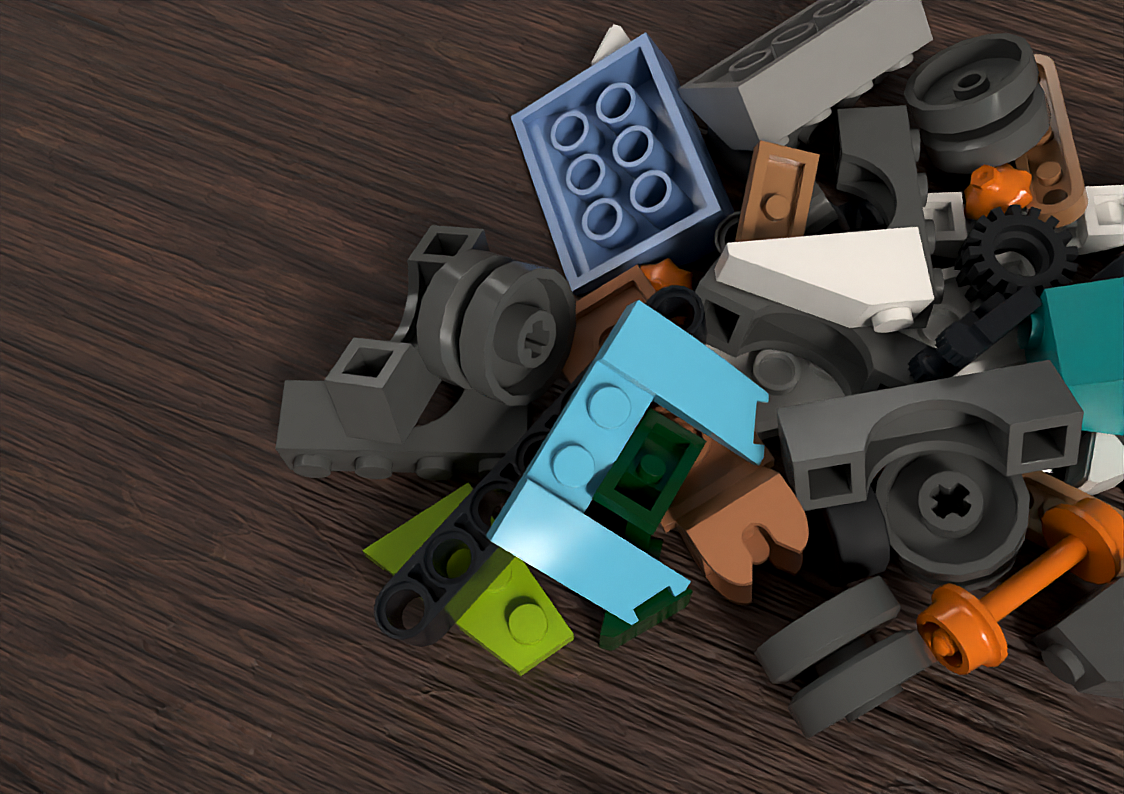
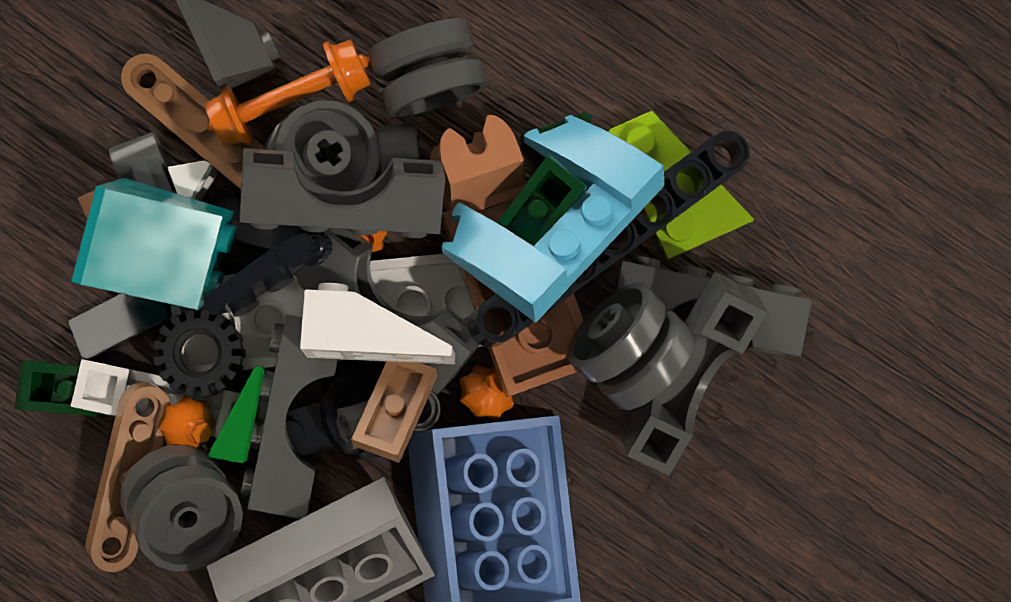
camera: 175 degrees left, 20 degrees up
(946, 171) = (236, 434): none -> green slope

